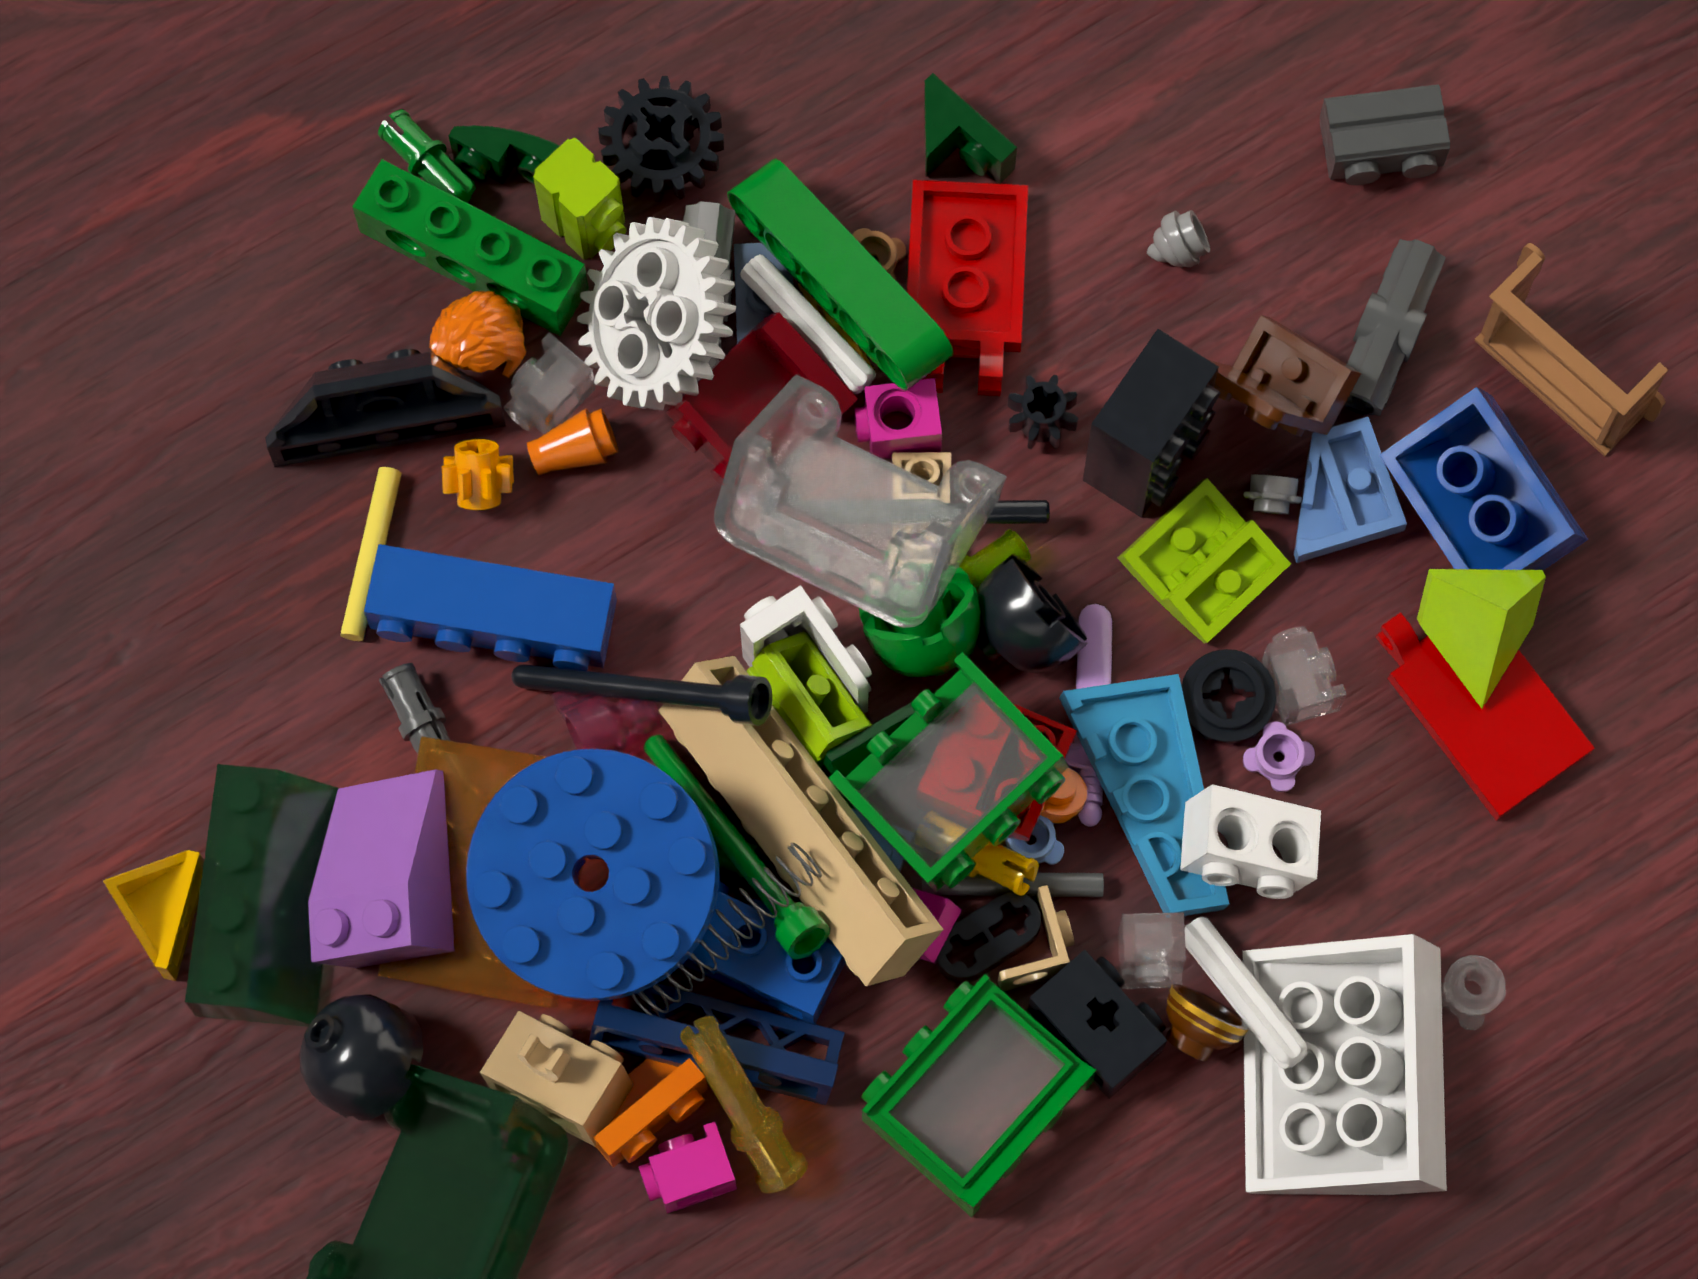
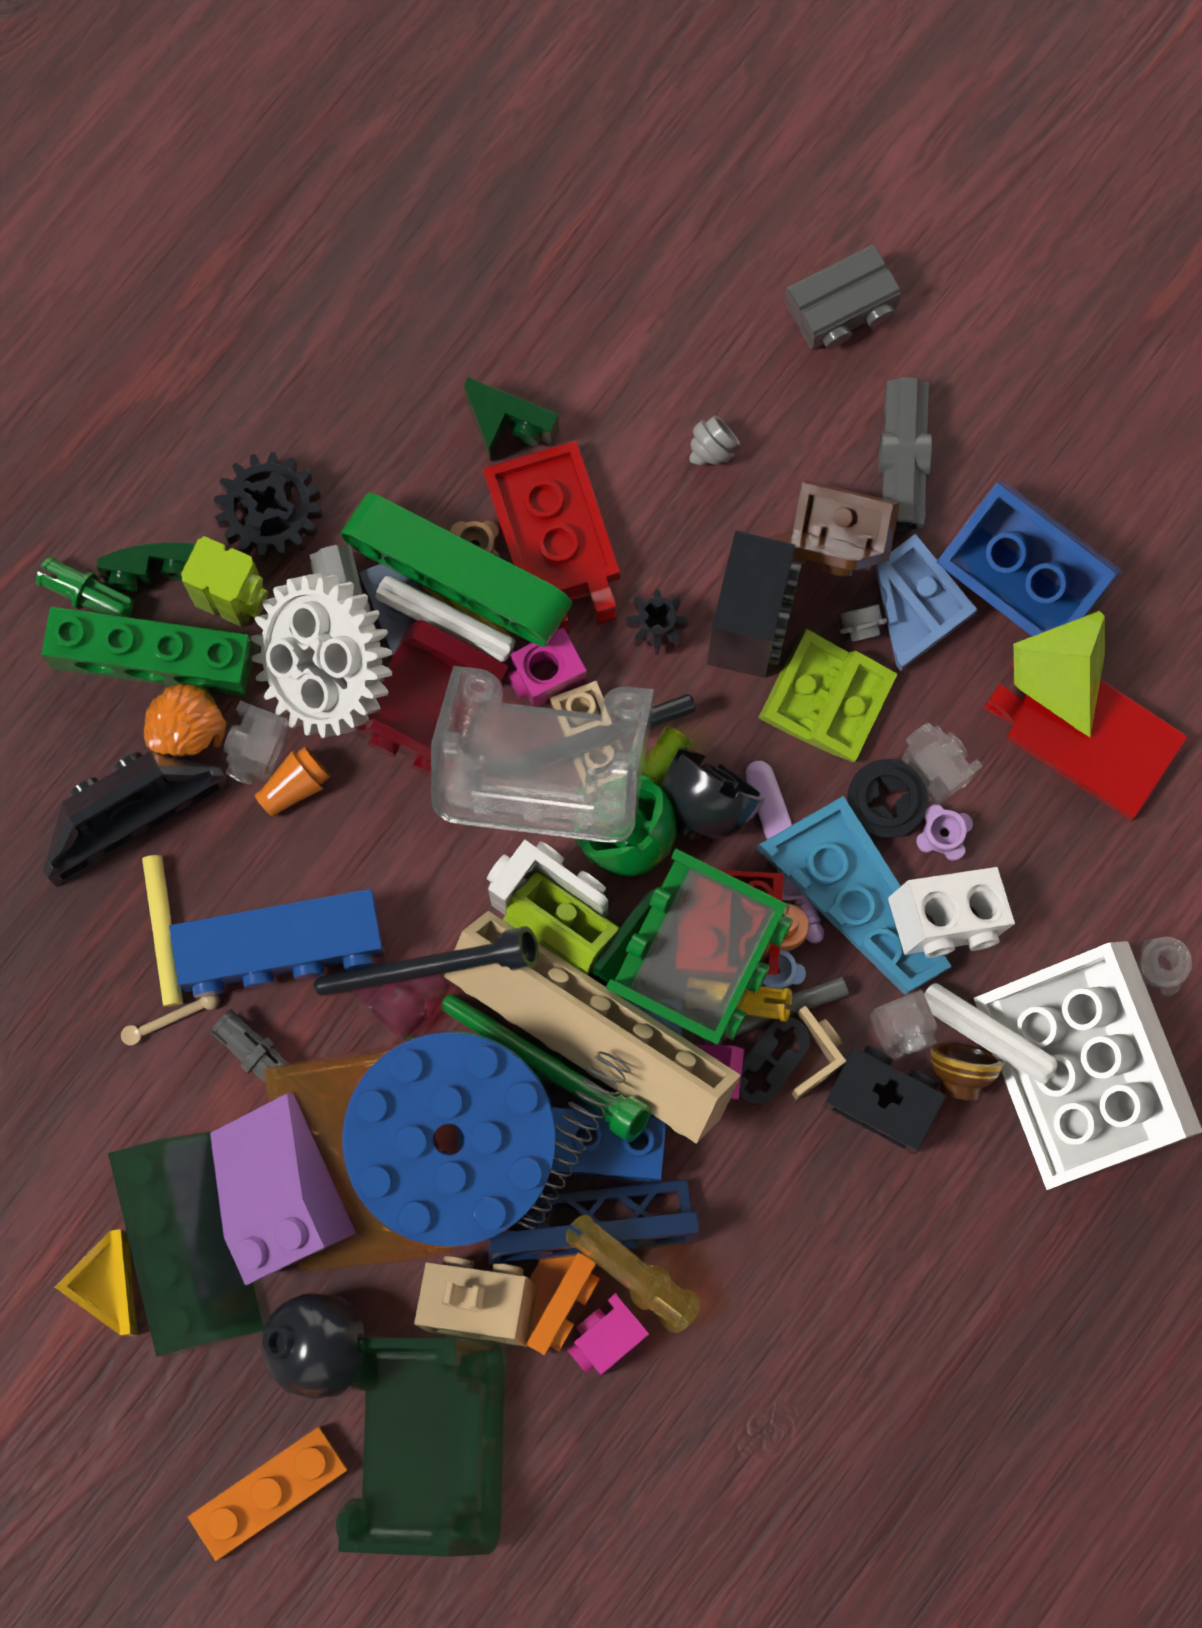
camera: 20 degrees left, 5 degrees up
(250, 1203) = (267, 1493): none -> orange plate
(295, 655) = (133, 1036): none -> tan hinge
(477, 474) = (225, 836): light orange gear -> none
(974, 1093) = (810, 1191): window -> none
(1557, 370) = (1052, 444): medium nougat piece -> none

